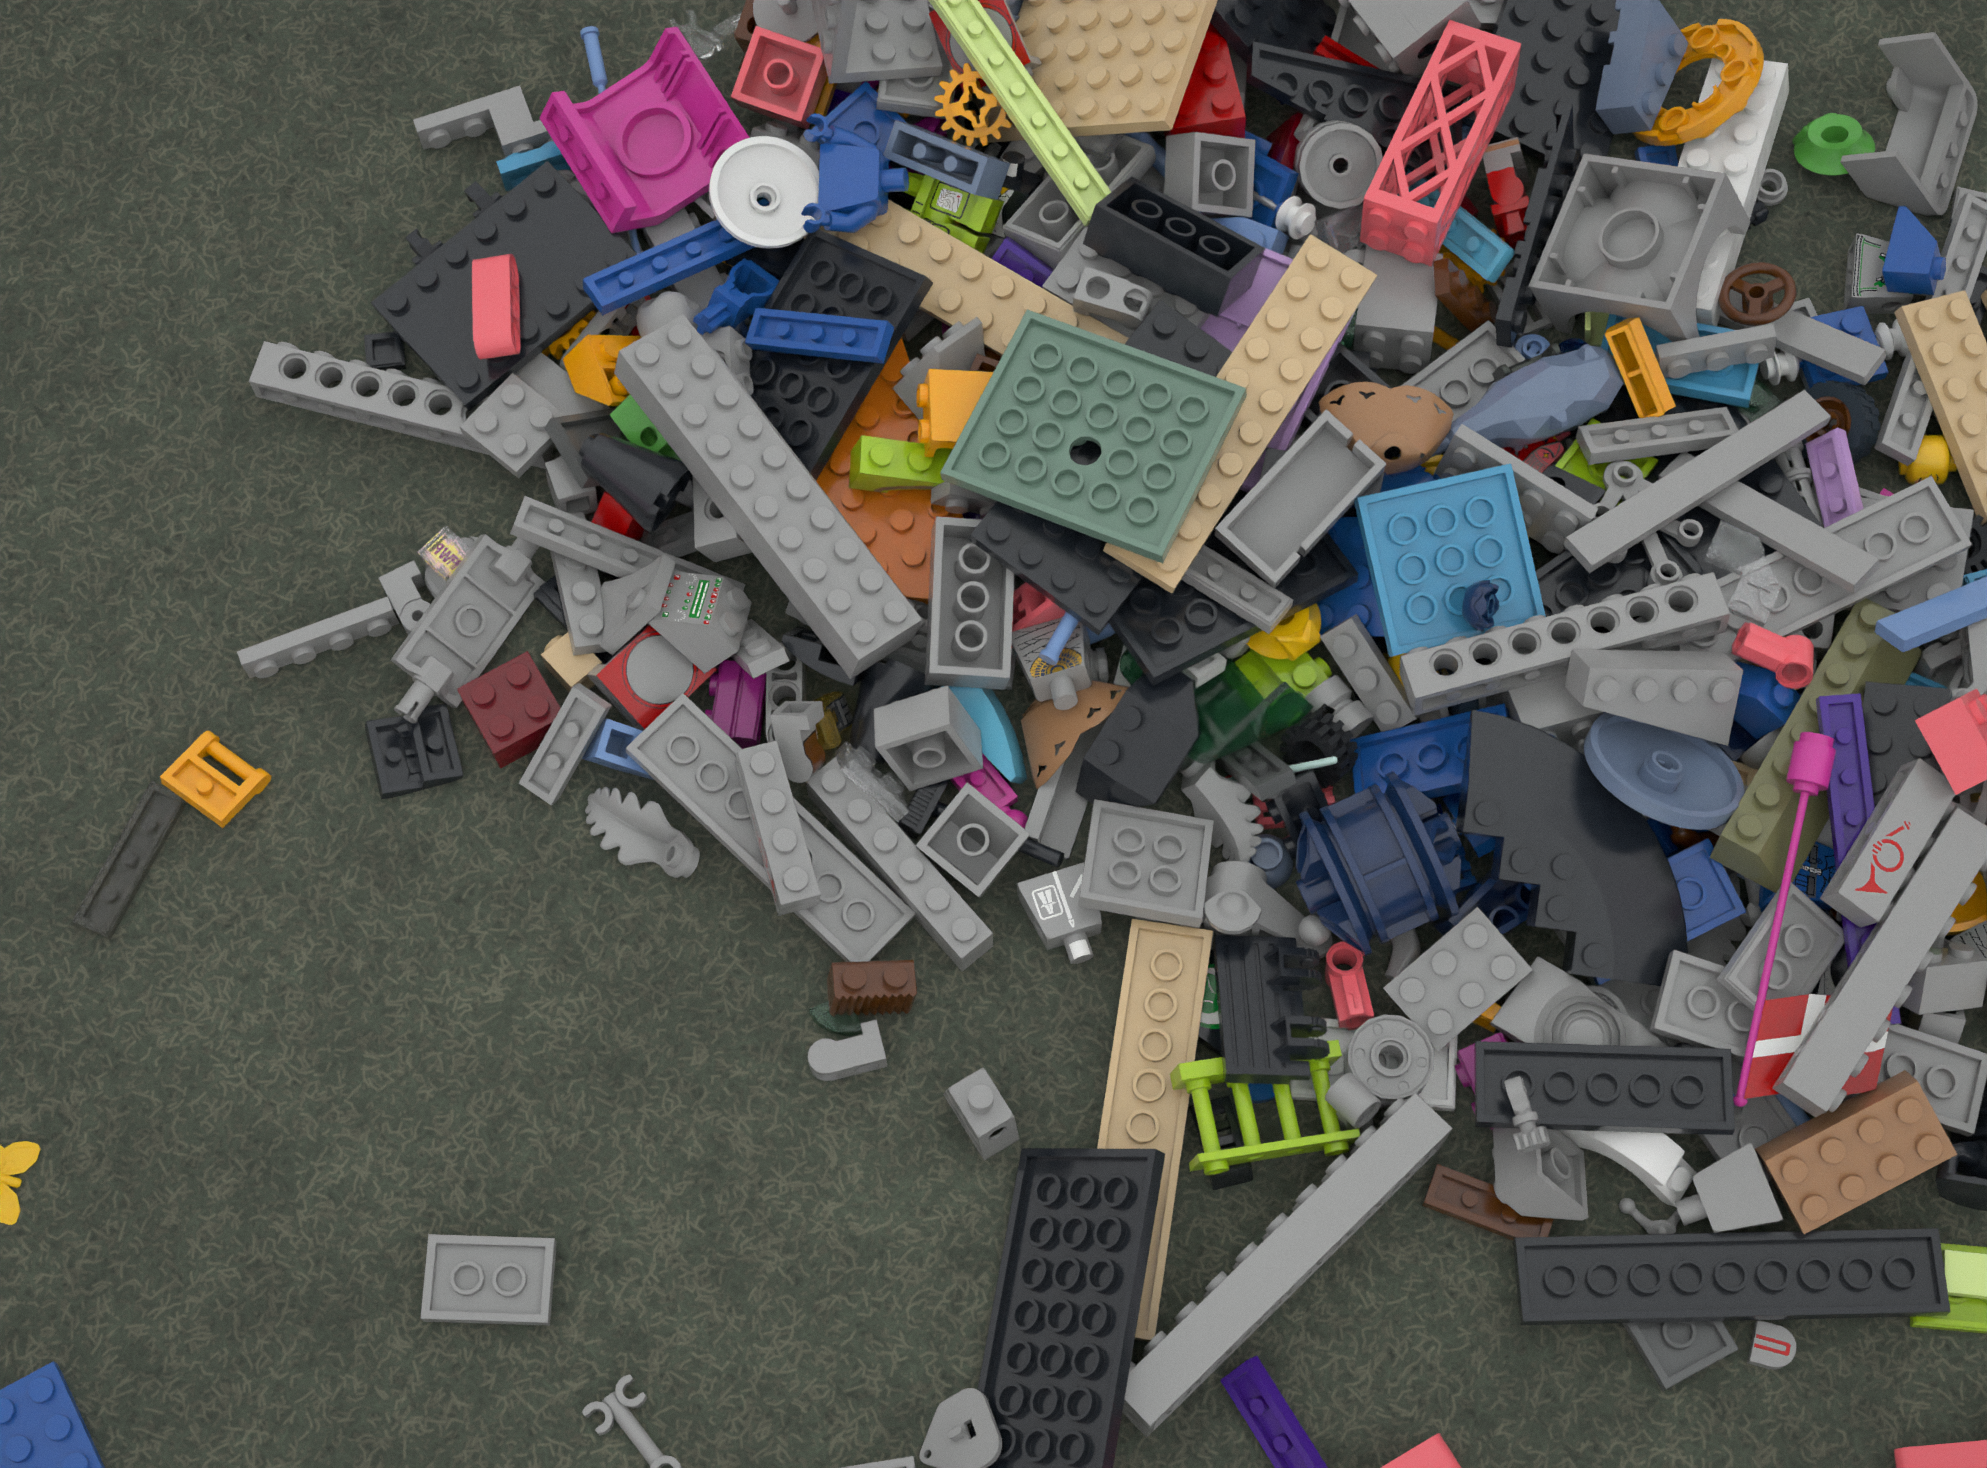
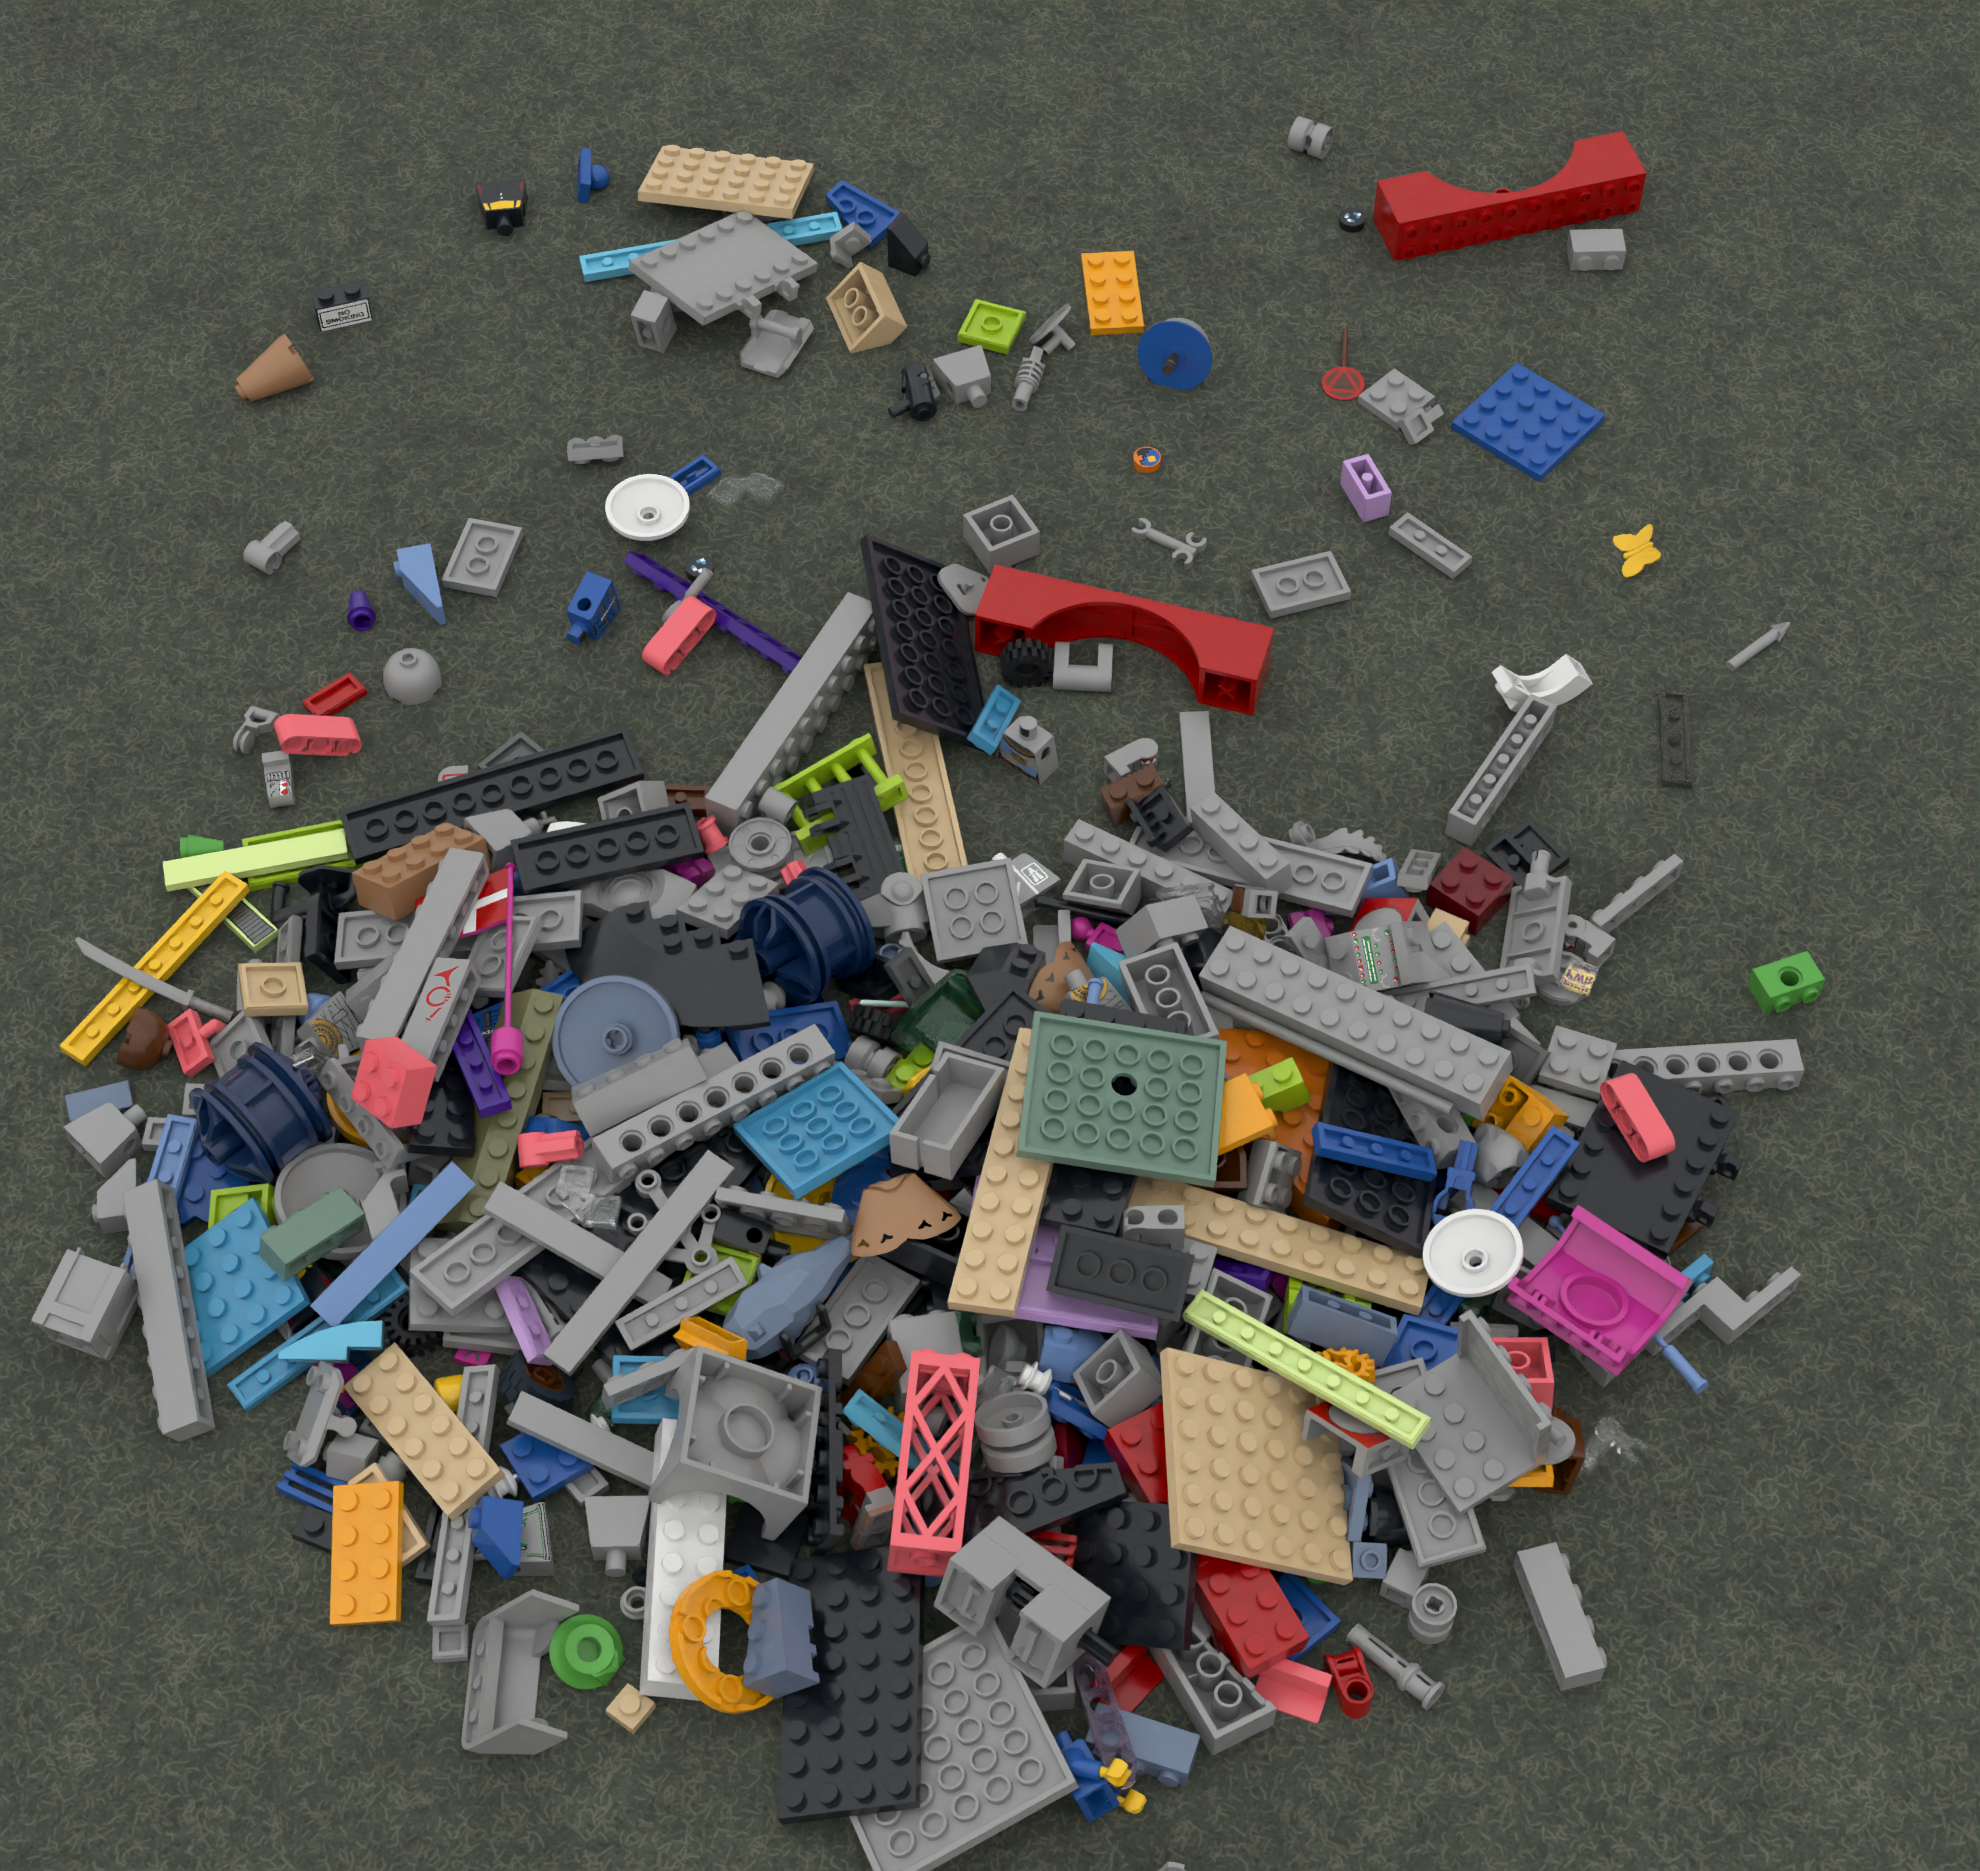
camera: 160 degrees right, 15 degrees down
(207, 787) = (1651, 786): light orange plate -> none
(227, 480) = (1770, 983): none -> bright green brick
(258, 983) = (1555, 684): none -> white arch
(276, 1287) = (1430, 545): none -> light grey plate
(316, 1410) = (1365, 488): none -> lavender brick
(382, 866) = (1500, 770): none -> light grey brick
(765, 1017) = (1196, 757): none -> light grey tile
(851, 180) = (1408, 1277): blue torso -> none
(858, 921) = (1160, 819): none -> black bracket
(859, 1219) = (1082, 676): none -> light grey connector
(894, 1332) = (1216, 653): none -> red arch
(930, 1252) = (1014, 659): none -> black tyre
(1008, 1174) = (993, 719): none -> dark azure plate
(1456, 1108) = (710, 835): none -> coral piece
(1480, 604) = (785, 1097): dark blue plate -> none
(1530, 1136) = (650, 795): light grey piece -> none
(1757, 297) = (621, 1463): reddish brown piece -> none
(1780, 246) = (617, 1529): none -> light grey torso
(1803, 91) = (630, 1708): none -> tan plate

